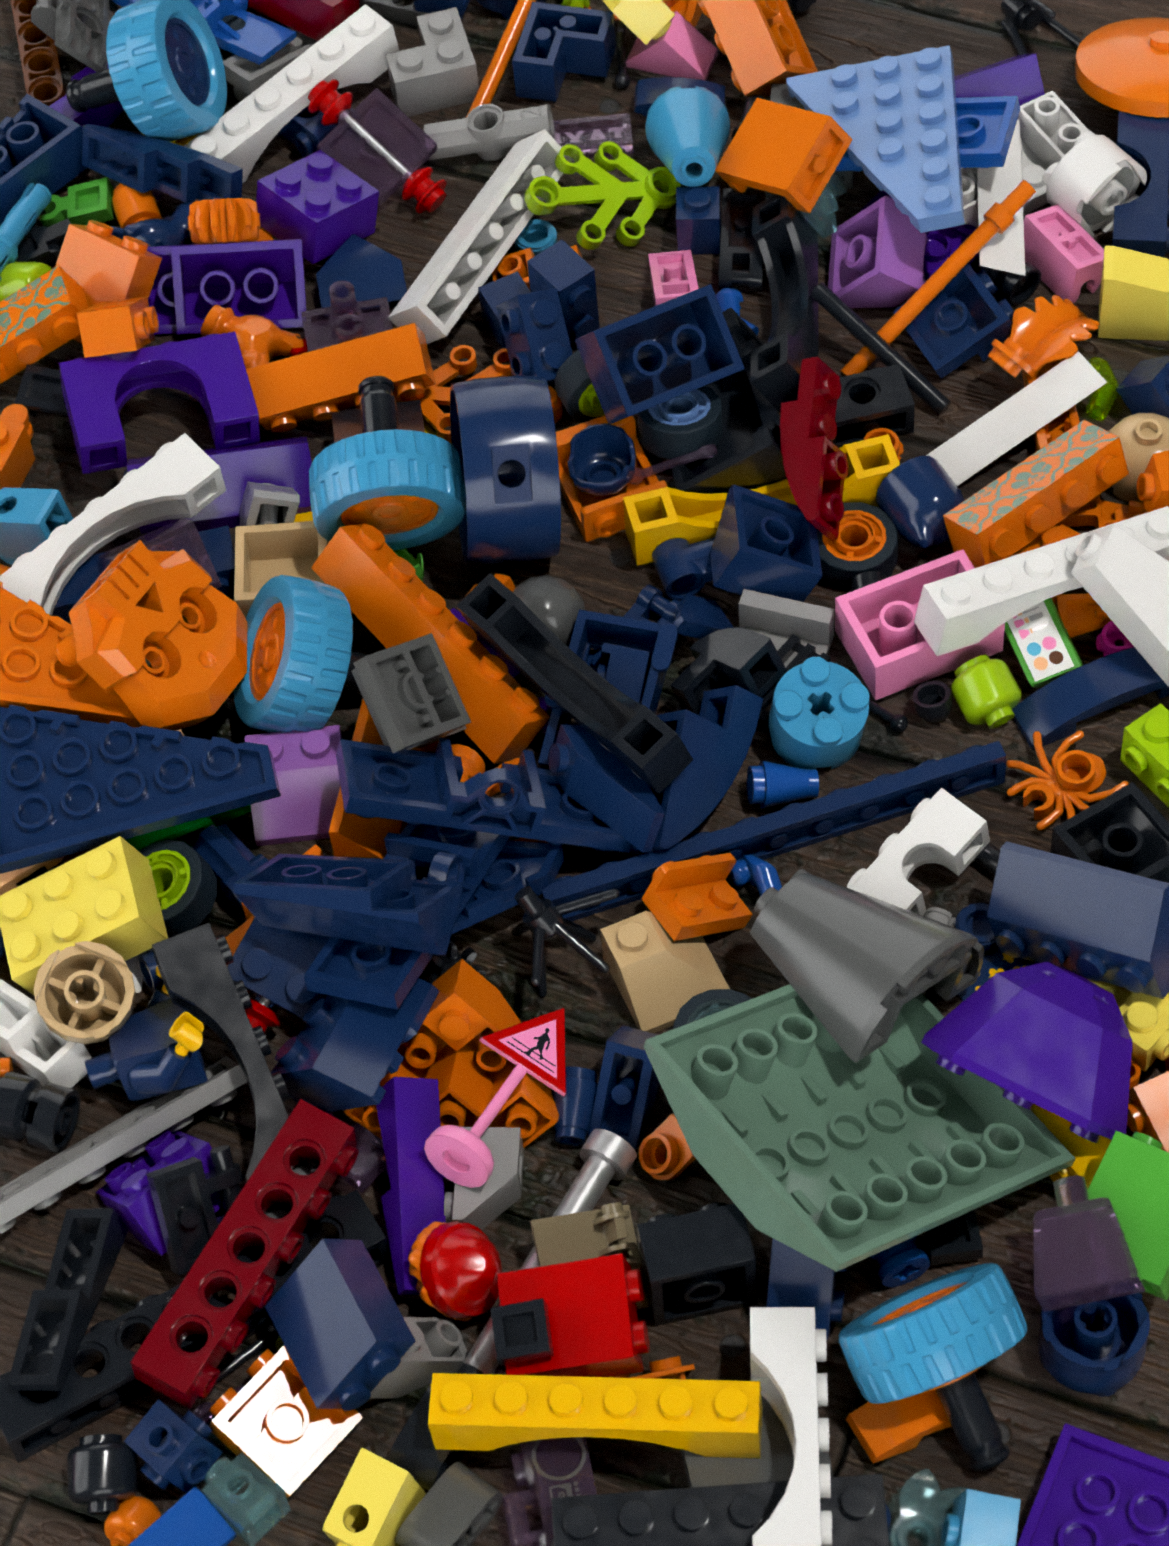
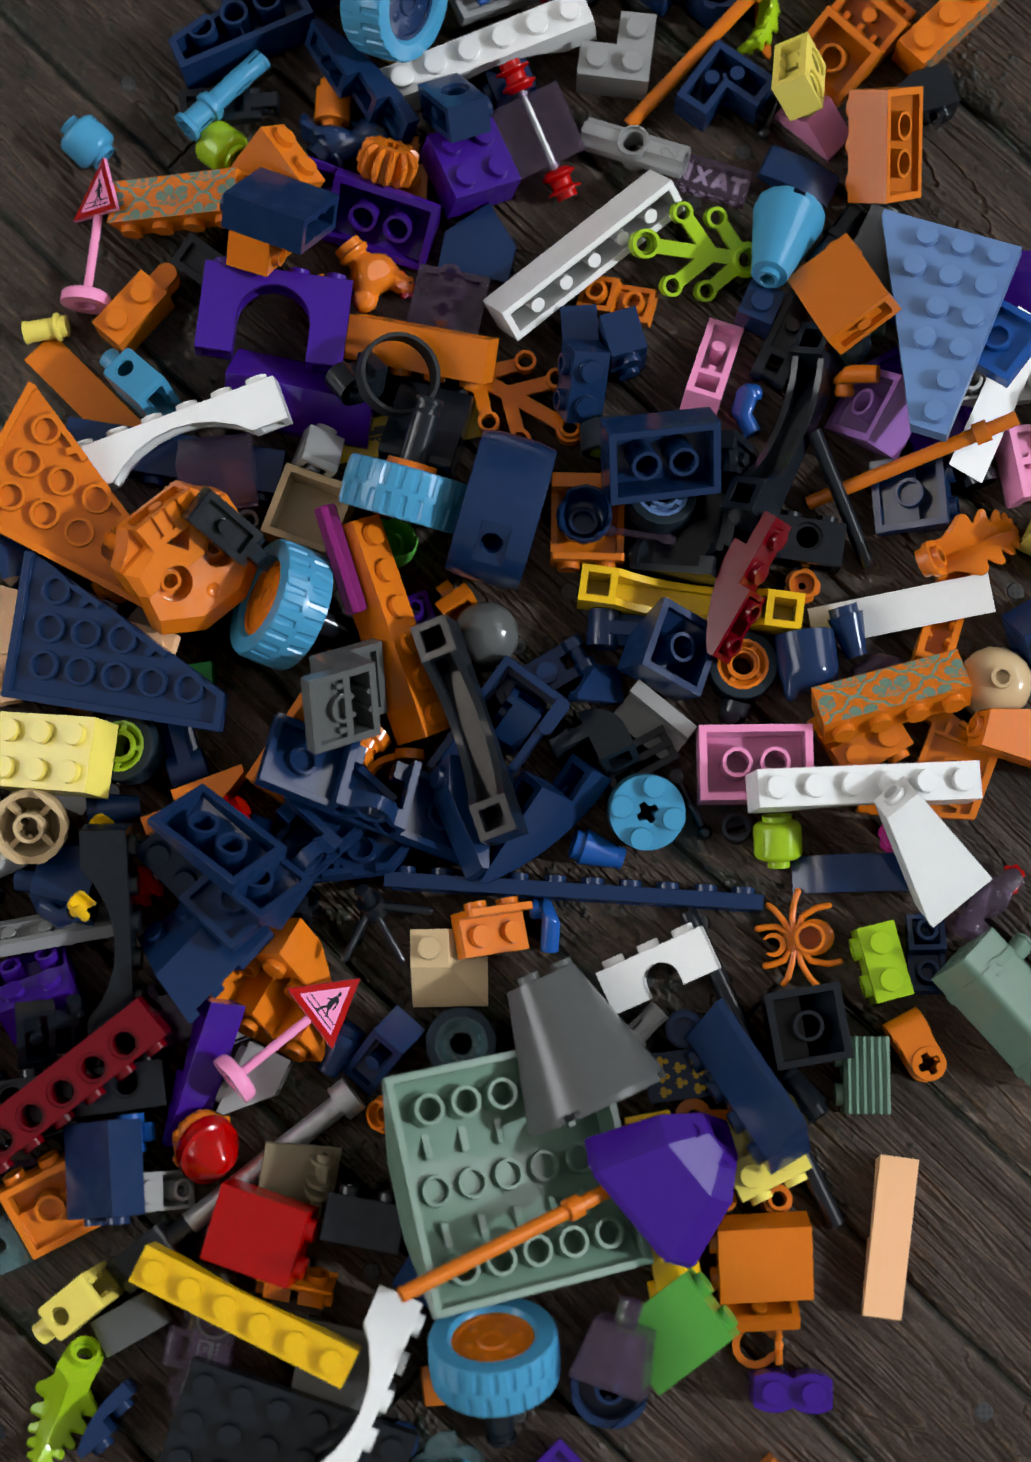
camera: 20 degrees right, 25 degrees up
(83, 203) = (295, 79): bright green plate -> none
(124, 280) = (279, 210): none -> dark blue brick
(202, 576) = (227, 529): none -> black hinge
(277, 144) = (455, 107): none -> dark blue brick
(285, 423) = (342, 380): none -> black leg
(306, 417) = (419, 345): none -> black tyre
(307, 785) = (254, 696): medium lavender slope -> none
(343, 575) = (340, 559): none -> magenta axle
(522, 1332) = (217, 1241): black plate -> none
(537, 235) = (630, 269): dark azure tile -> none
(831, 230) = (854, 374): none -> orange arm
(939, 1118) = (569, 1209): none -> orange bar
(957, 461) = (849, 629): none -> dark blue cone
(1042, 644) = (836, 829): slope -> none
(1105, 396) = (1000, 590): clear neon green arm -> none

